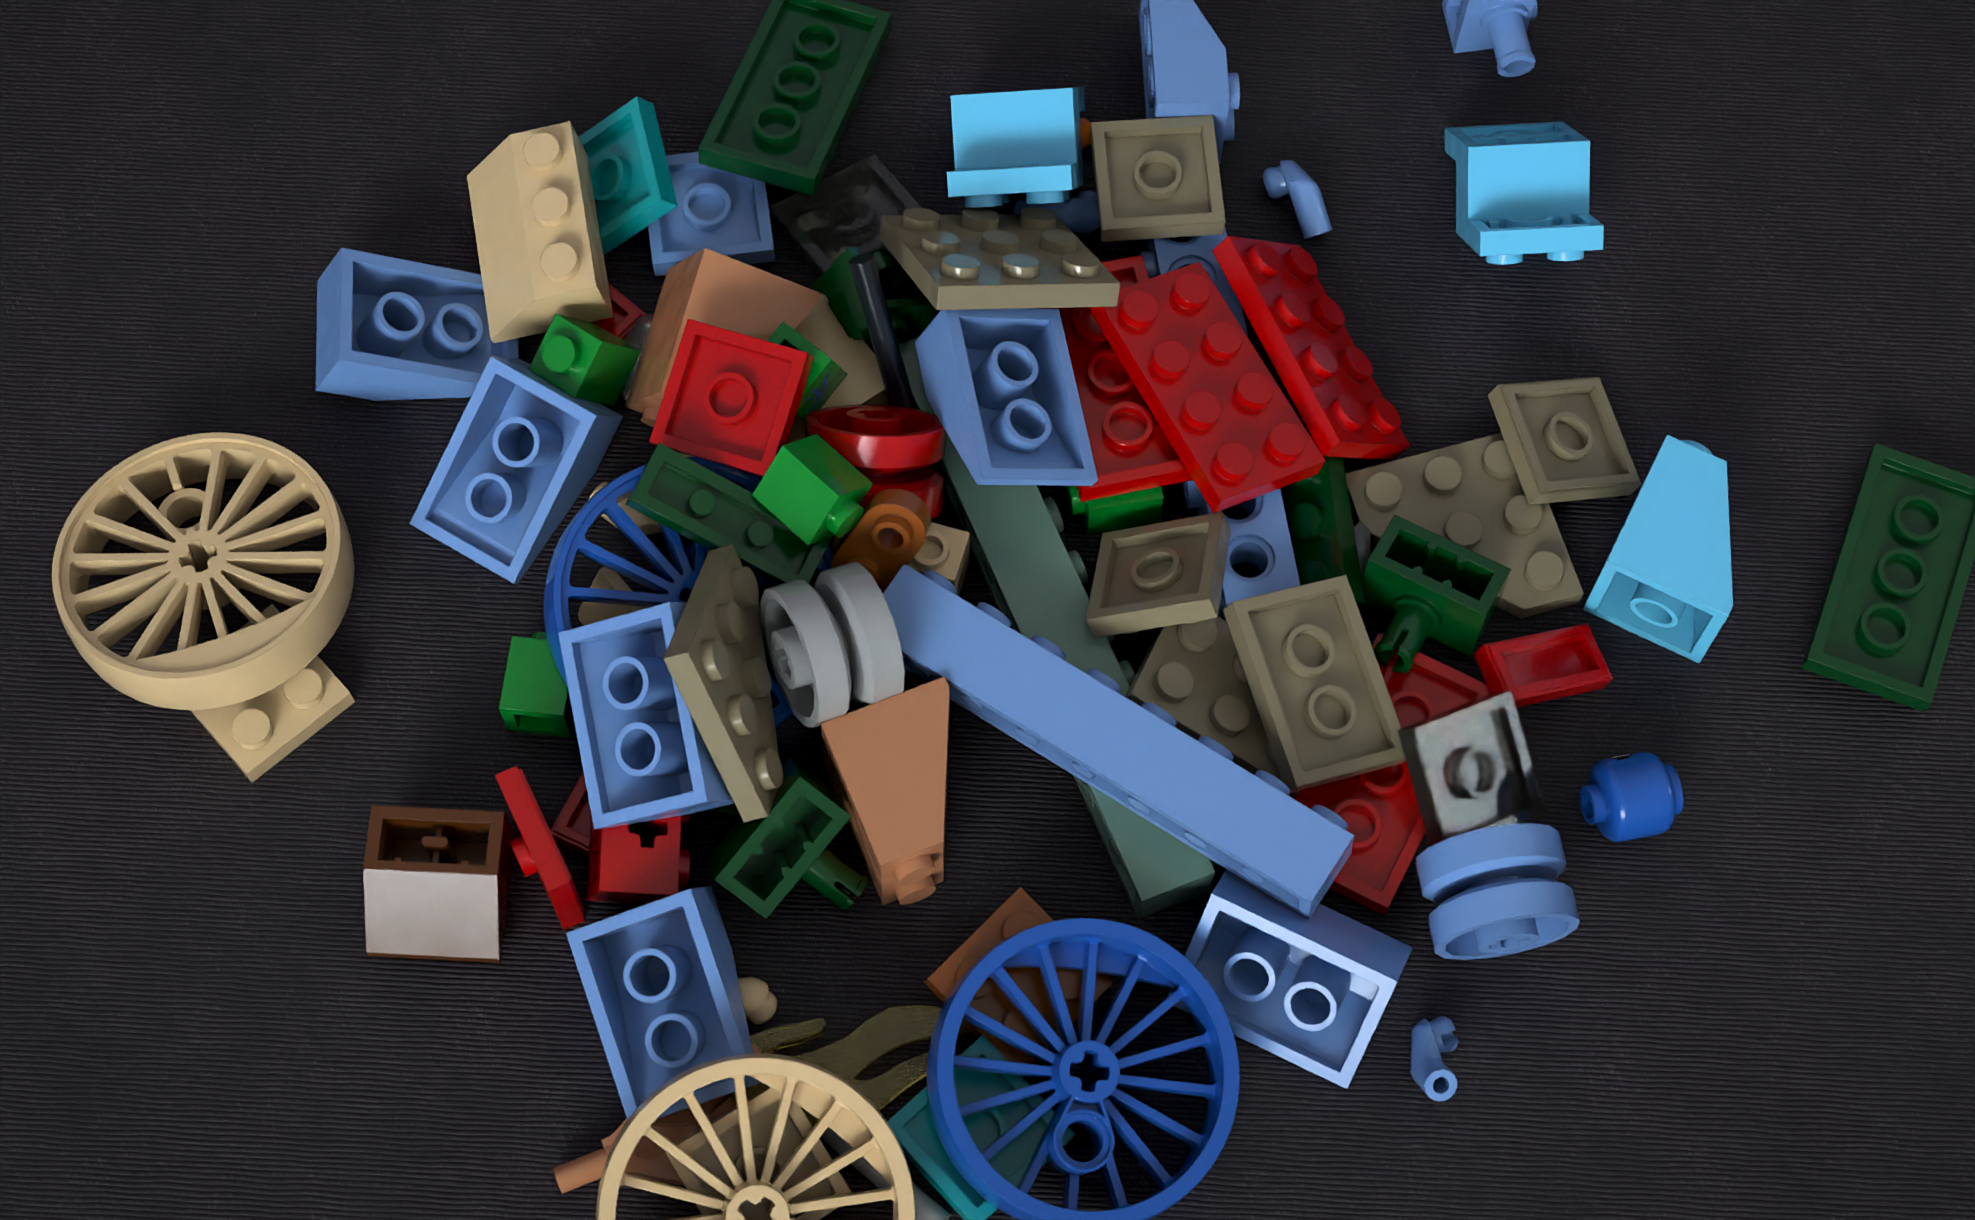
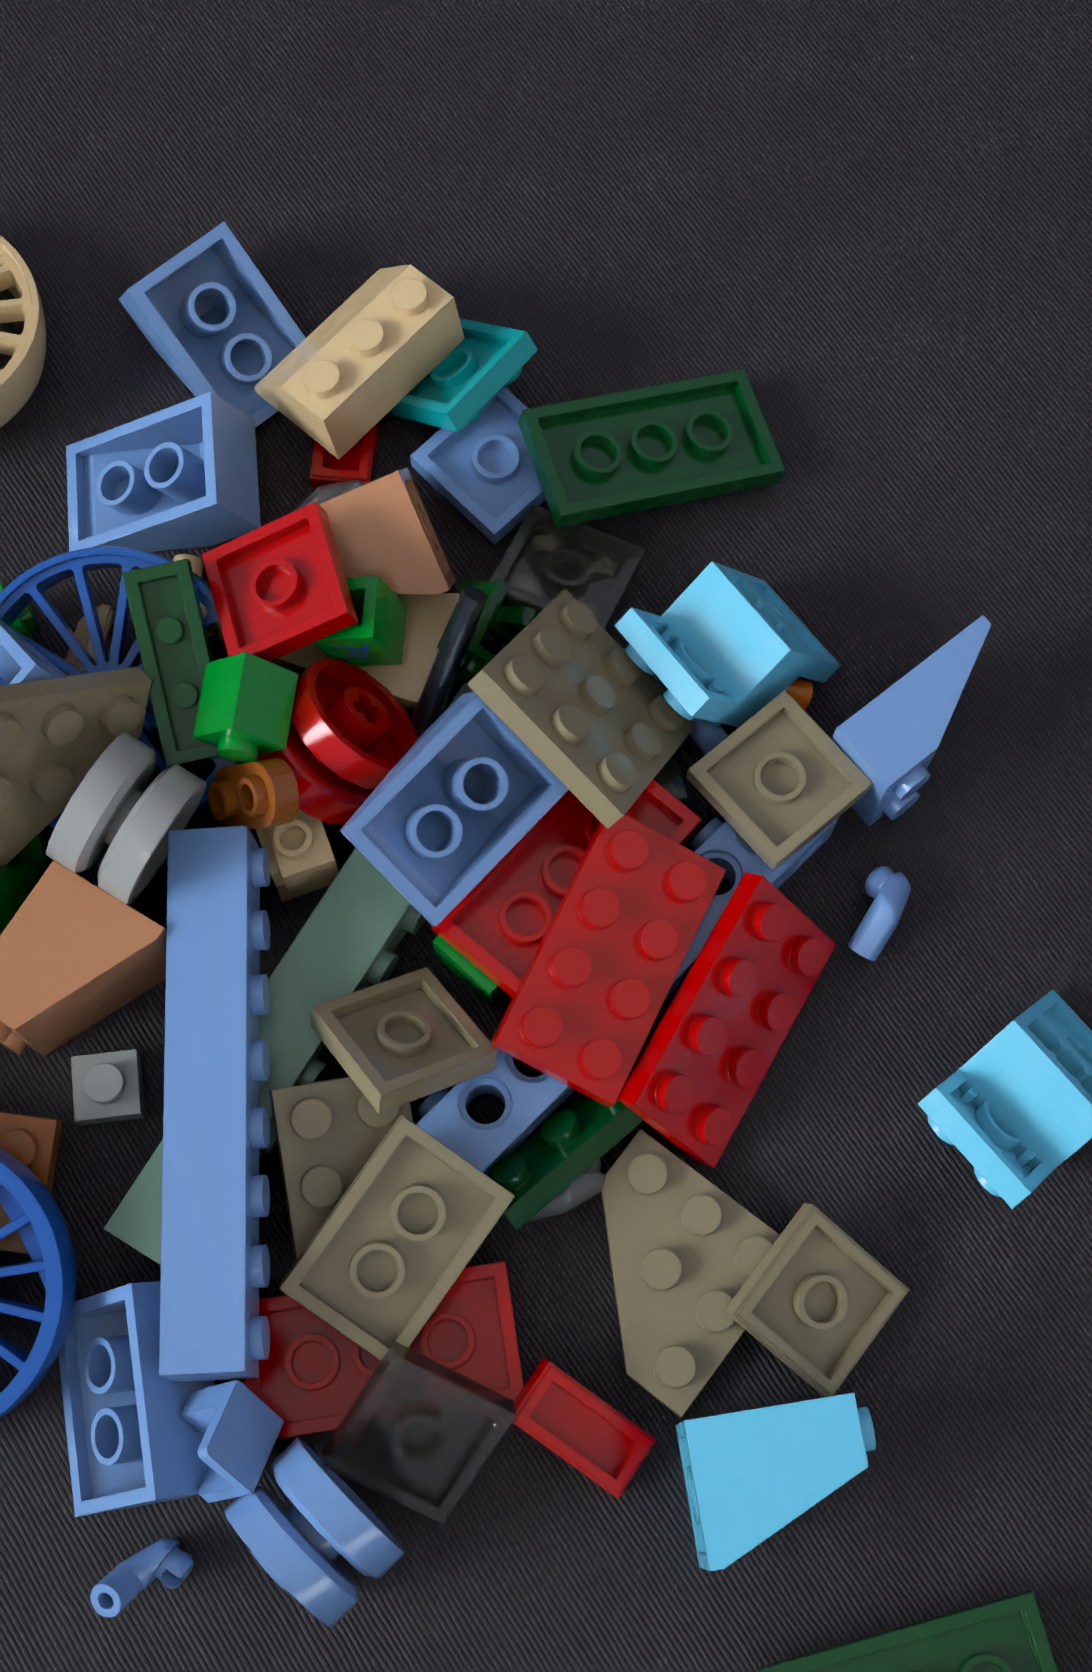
camera: 55 degrees right, 5 degrees up
(584, 360) = (279, 464): green brick -> none
(1011, 843) = (107, 1087): none -> light grey plate
(1384, 900) = (236, 1438): none -> medium blue panel
(1429, 591) = (570, 1279): dark green brick -> none
(1631, 796) = (506, 1592): blue head -> none

